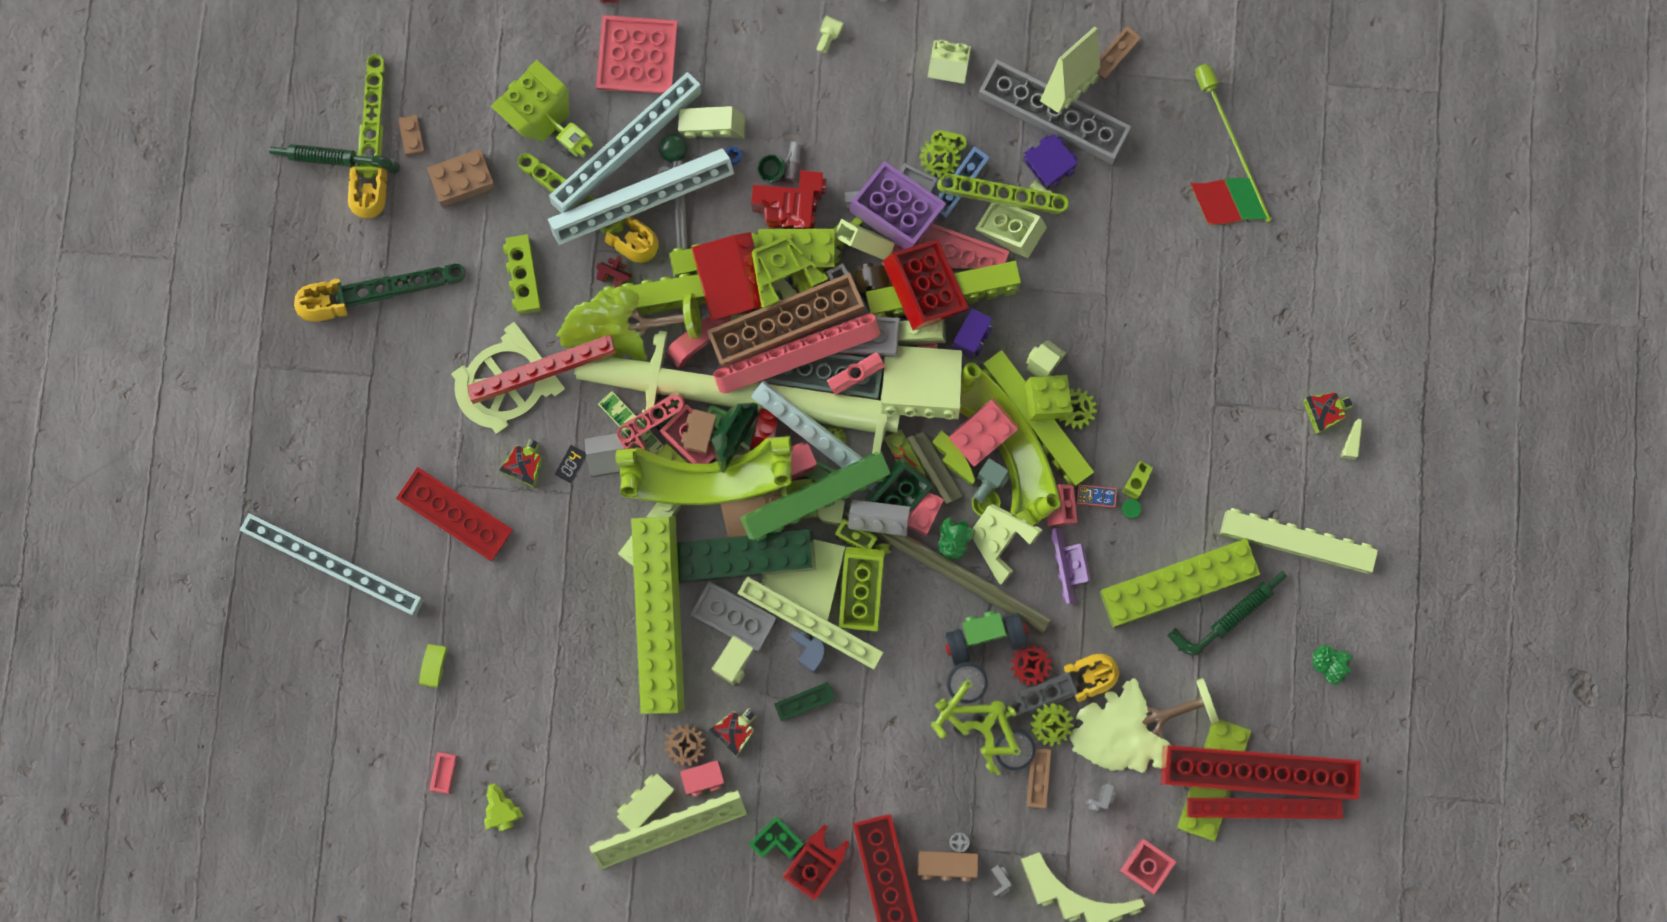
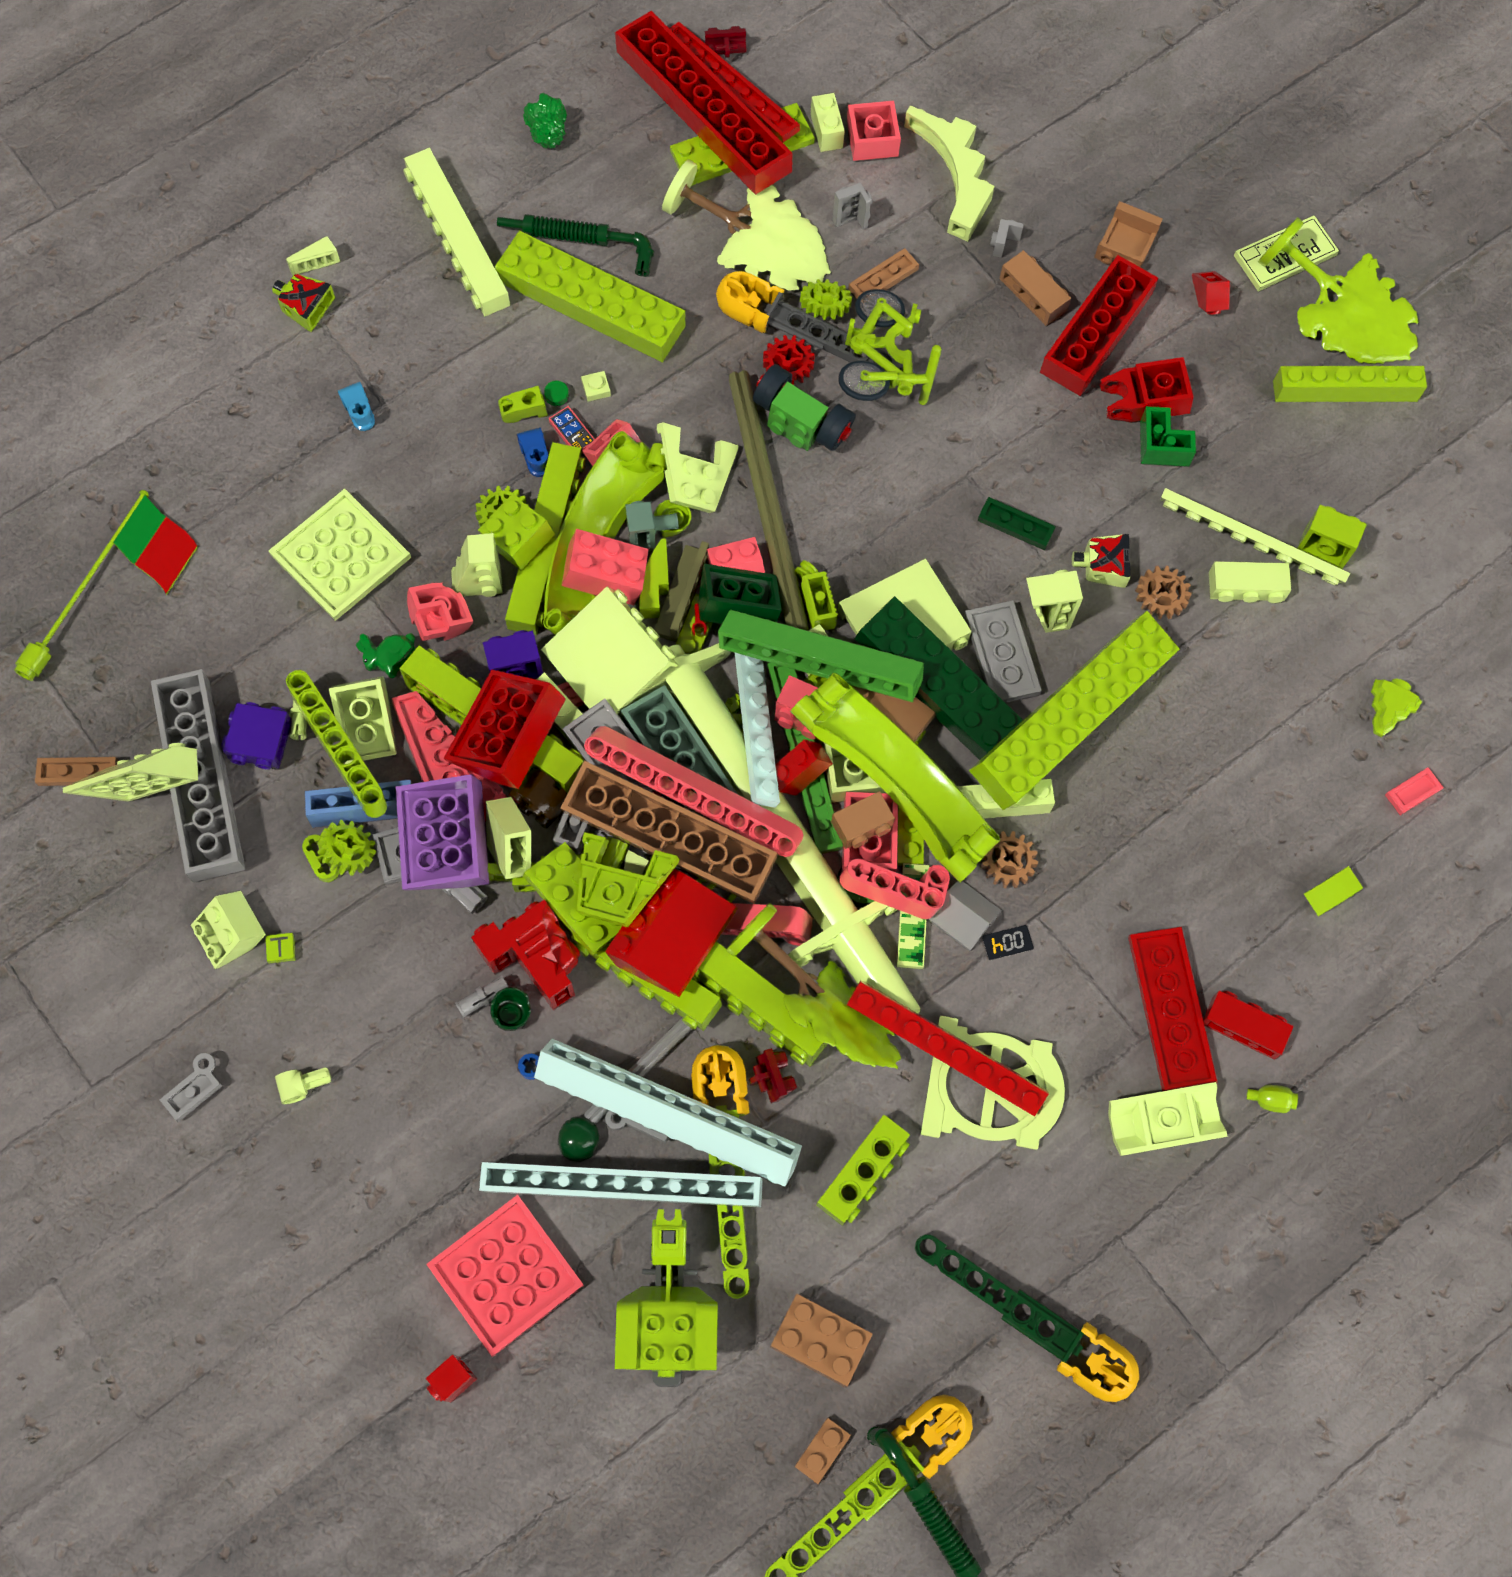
camera: 135 degrees left, 10 degrees down
(331, 565) = (1347, 1084): light aqua brick -> none
(360, 522) = (1274, 1098): none -> lime plant
(402, 453) = (1165, 1119): none -> yellowish green piece
(409, 545) = (1247, 1024): none -> red brick
(523, 464) = (1056, 984): torso -> none
(611, 512) = (1013, 868): none -> medium nougat gear
(626, 875) = (1331, 536): none -> lime brick
(702, 778) = (1175, 550): coral brick -> none
(711, 122) = (516, 1118): yellowish green wedge -> none
(732, 432) = (835, 790): dark green wedge -> none
(810, 622) = (943, 569): yellowish green plate -> none
(814, 650) = (964, 552): sand blue brick -> none
(861, 588) = (865, 548): lime brick -> none
(867, 367) = (644, 714): coral piece -> none
(879, 517) = (783, 584): light grey brick -> none
(915, 81) = (280, 948): none -> lime tile
(954, 538) = (733, 514): green hair -> none
(959, 842) = (1004, 289): light grey wheel -> none
(1039, 272) = (388, 655): none -> green animal
(1041, 319) = (438, 611): none -> coral brick
(1072, 565) = (660, 396): medium lavender bracket -> none
(1103, 462) = (534, 450): none -> blue piece
(1115, 536) = (596, 386): none -> yellowish green plate
(1129, 296) = (339, 554): none -> yellowish green plate
(1180, 844) = (827, 122): none -> yellowish green brick
(1225, 384) = (357, 405): none -> dark azure piece
(1299, 835) = (727, 40): none -> dark red hips

